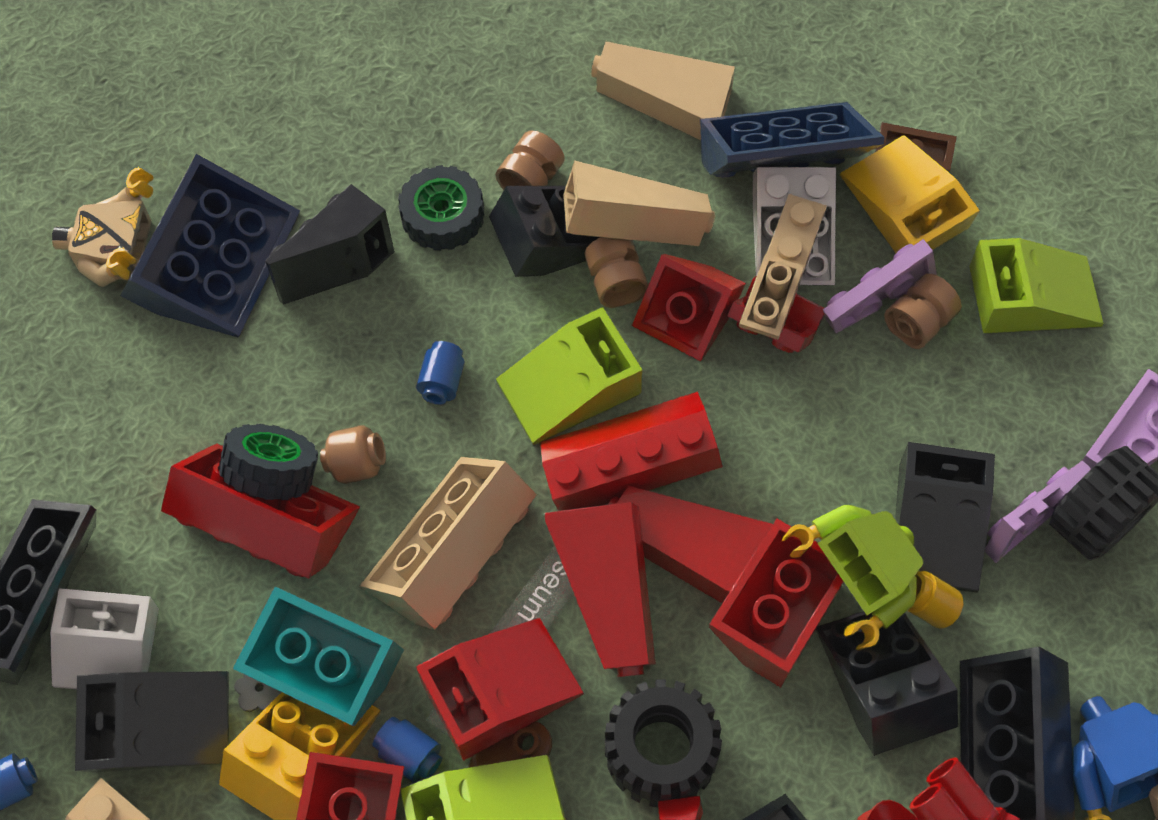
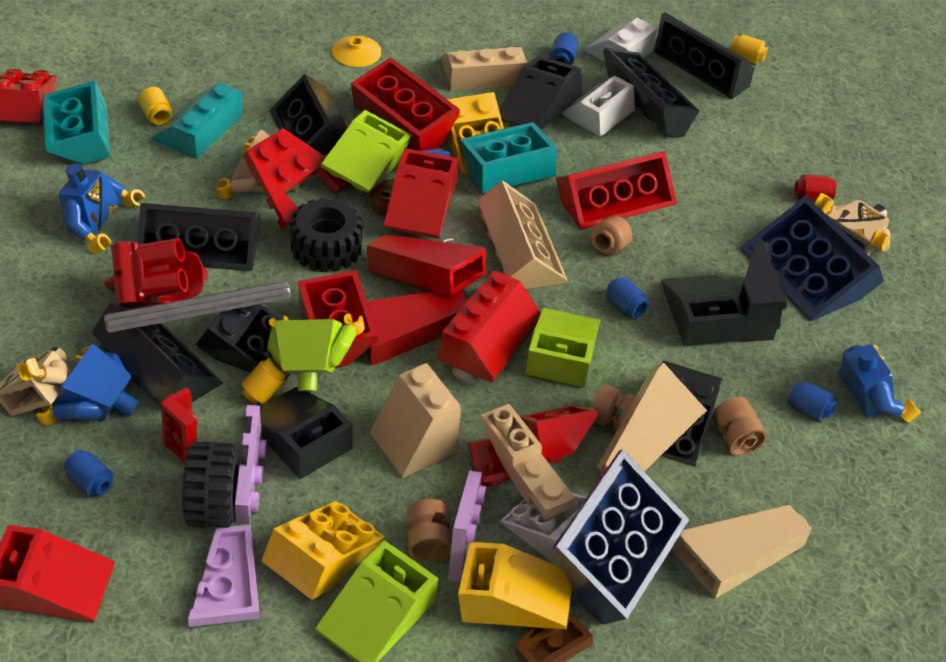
camera: 125 degrees right, 15 degrees down
(67, 318) = (814, 185): none -> red brick
(268, 461) = (649, 188): black wheel -> none
(357, 106) = (872, 383): none -> blue torso
(385, 296) = (705, 309): none -> black slope
(428, 139) = (812, 400): none -> blue brick
(428, 194) = (750, 371): black wheel -> none
(832, 403) = (417, 422): none -> tan slope
(957, 718) = (196, 306): none -> flat silver axle
(1029, 382) = (320, 548): none -> yellow slope
(1080, 607) = (178, 423): none -> red bracket

